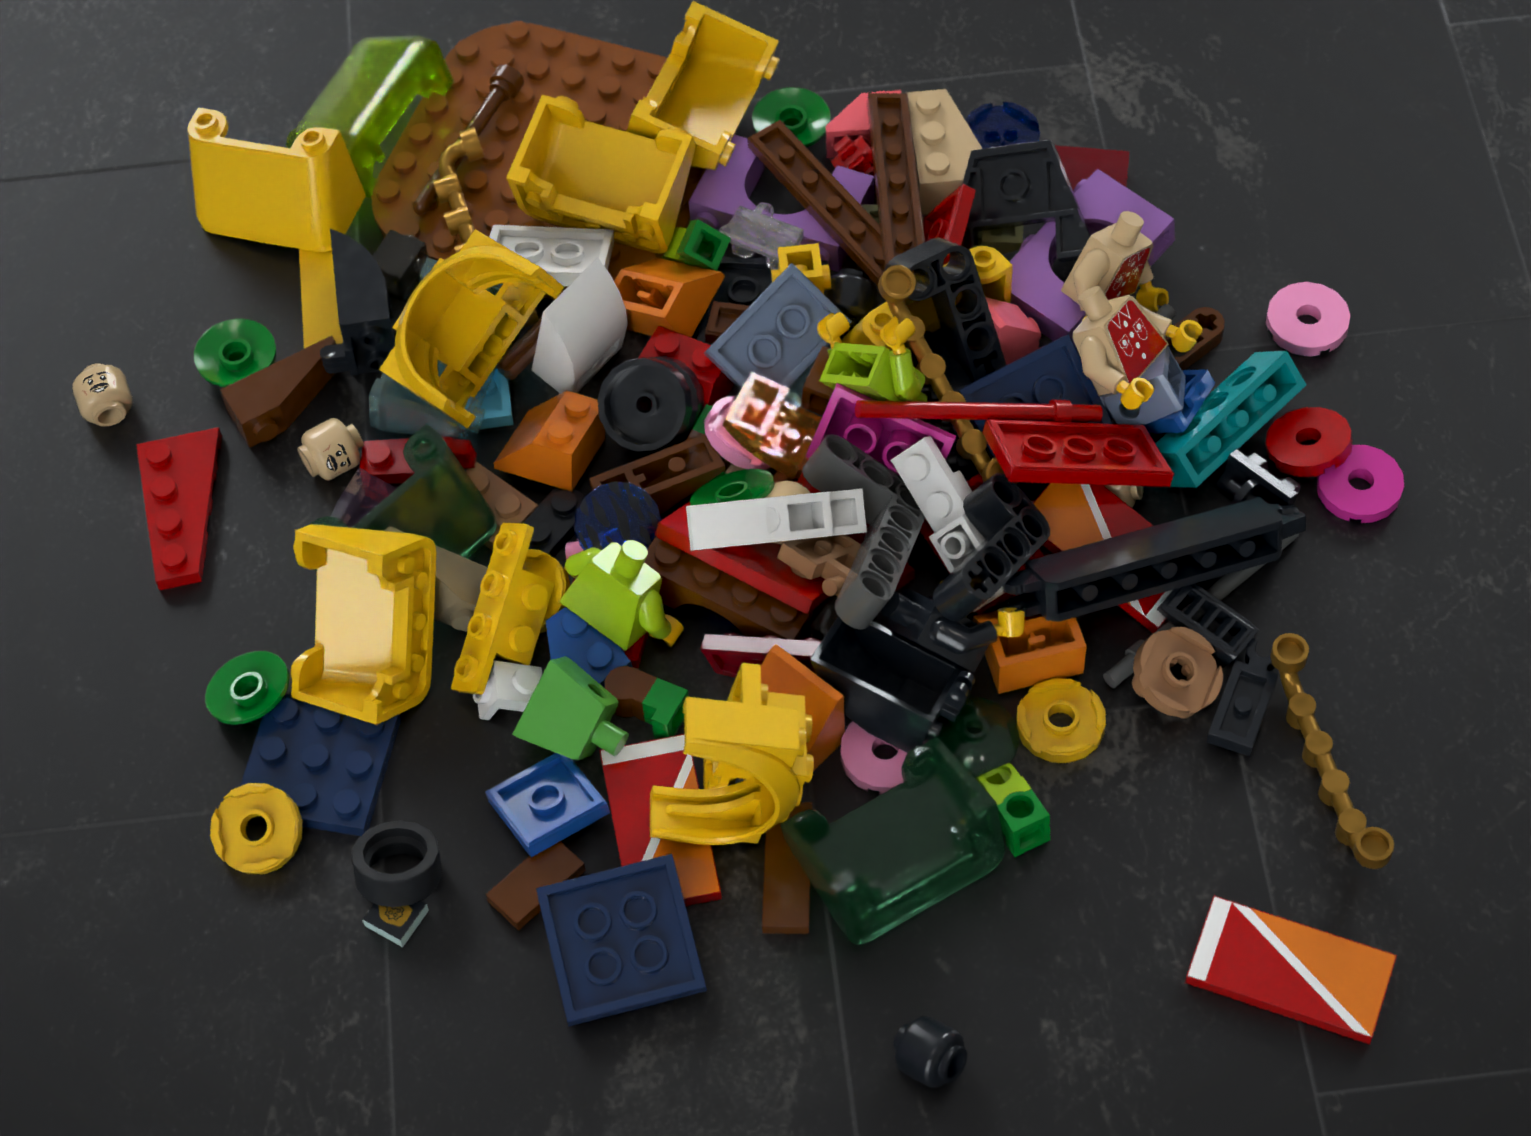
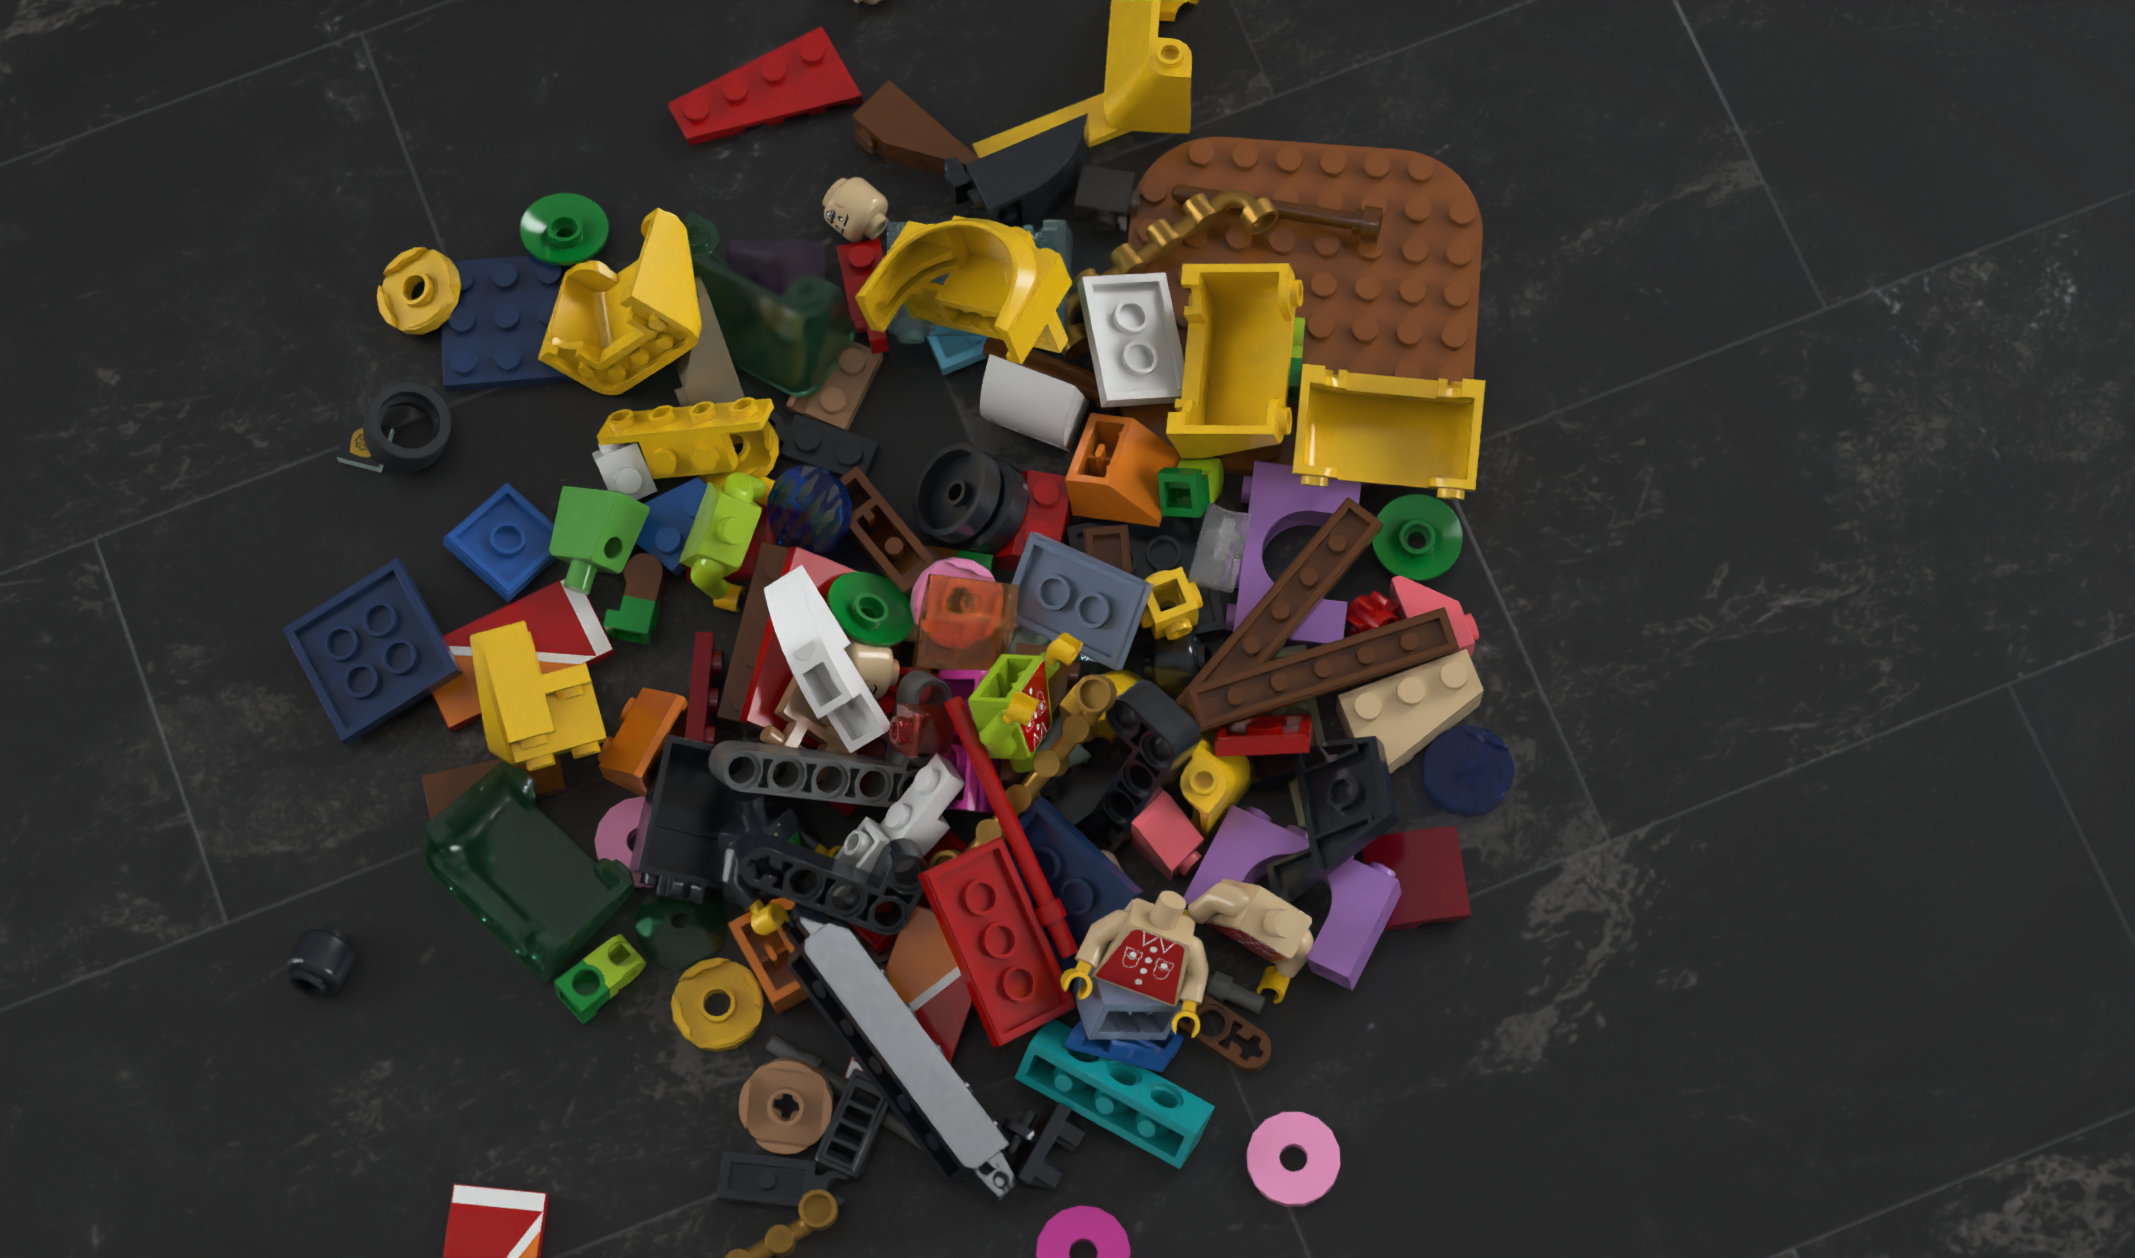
camera: 75 degrees right, 15 degrees up
(230, 341) = (951, 60): green dish -> none
(373, 93) = (1293, 91): clear neon green windscreen -> none
(517, 895) = (424, 558): reddish brown tile -> none
(555, 441) = (914, 417): orange slope -> none
(868, 460) = (921, 729): none -> clear red bracket
(1305, 424) = (1125, 1164): red tile -> none

